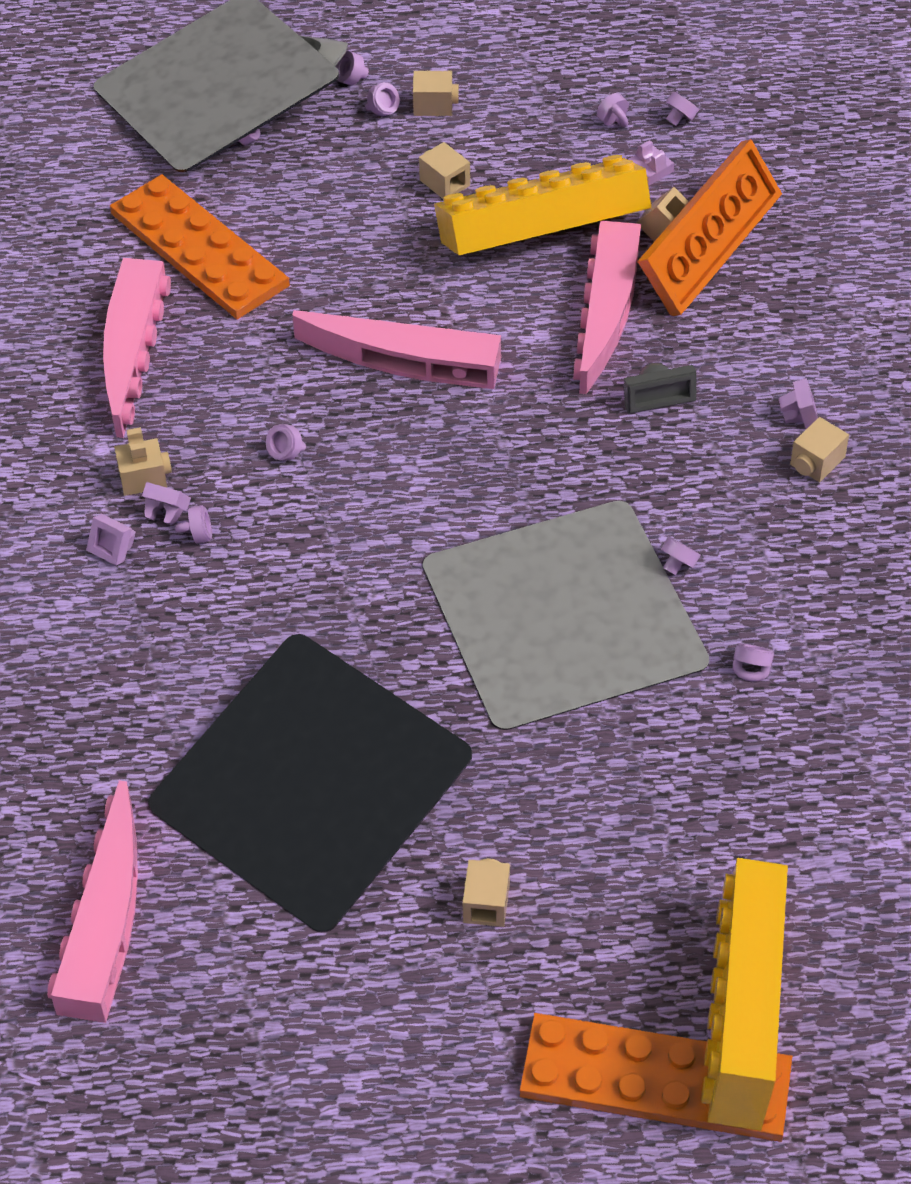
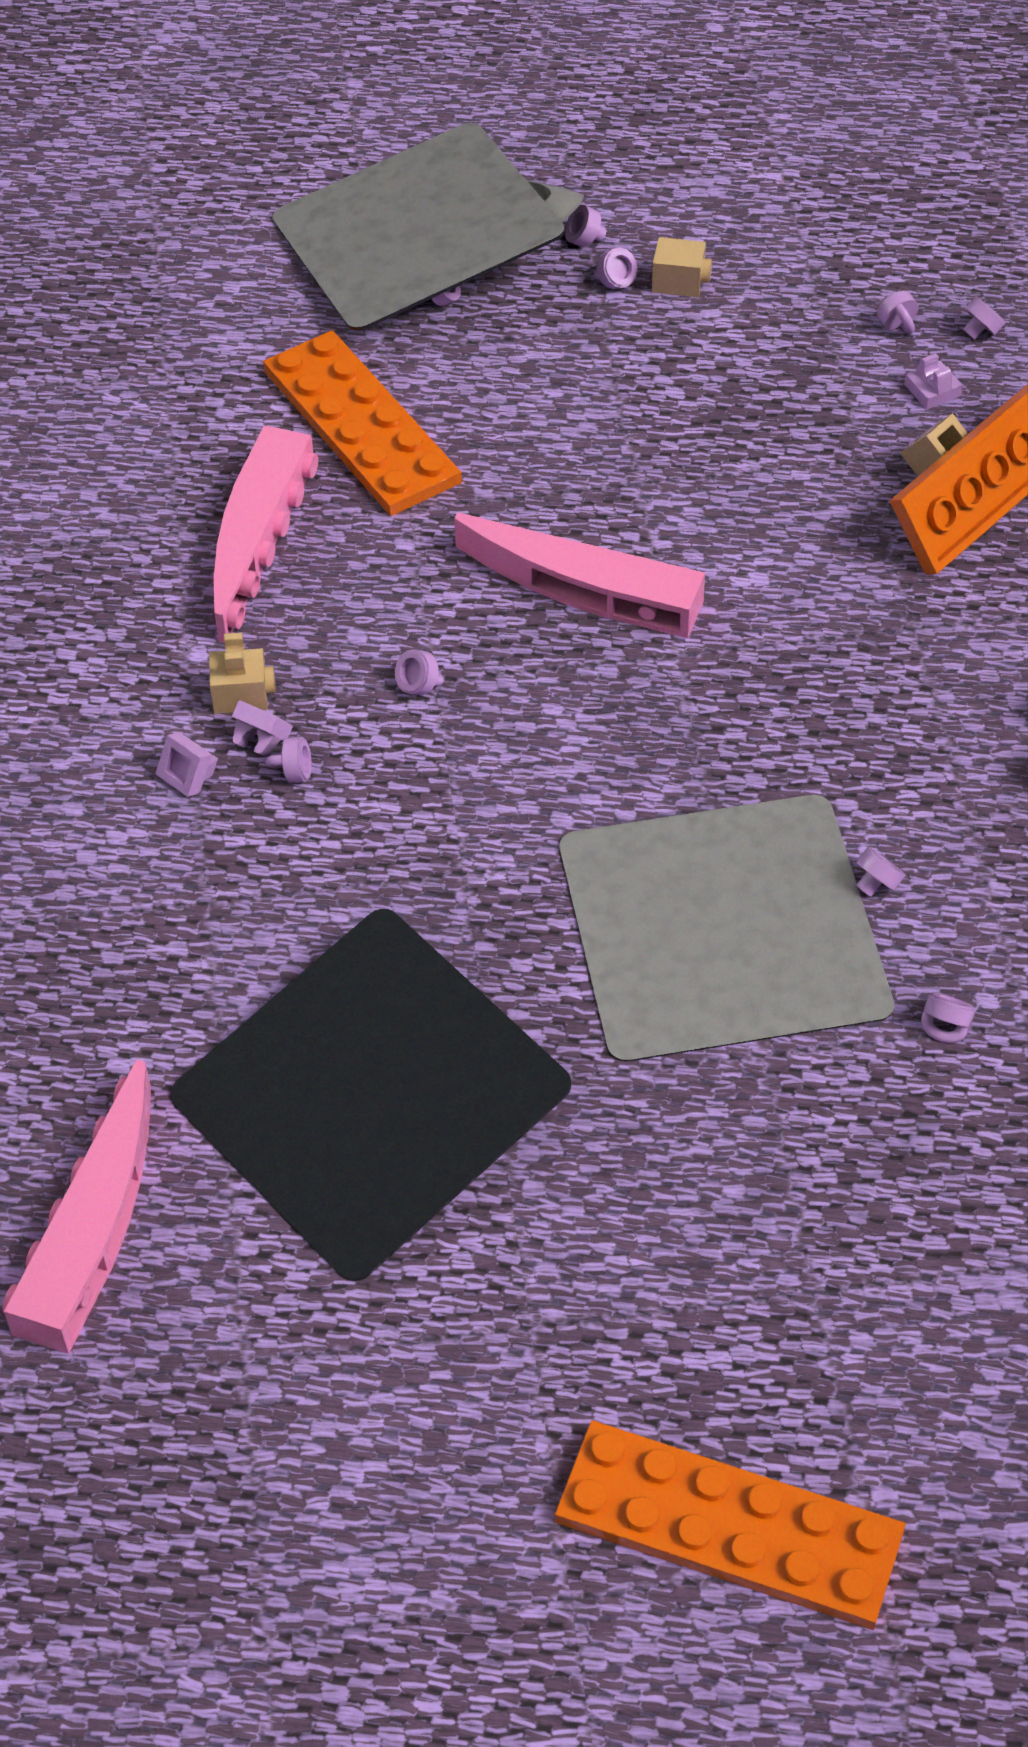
camera: 10 degrees right, 0 degrees up
(444, 170) = (675, 363): tan brick -> none
(486, 892) = (559, 1260): tan brick -> none
(542, 204) = (786, 417): yellow brick -> none
(608, 297) = (848, 542): bright pink slope -> none
(659, 387) = (892, 660): dark grey tile -> none
(746, 995) = (854, 1437): yellow brick -> none

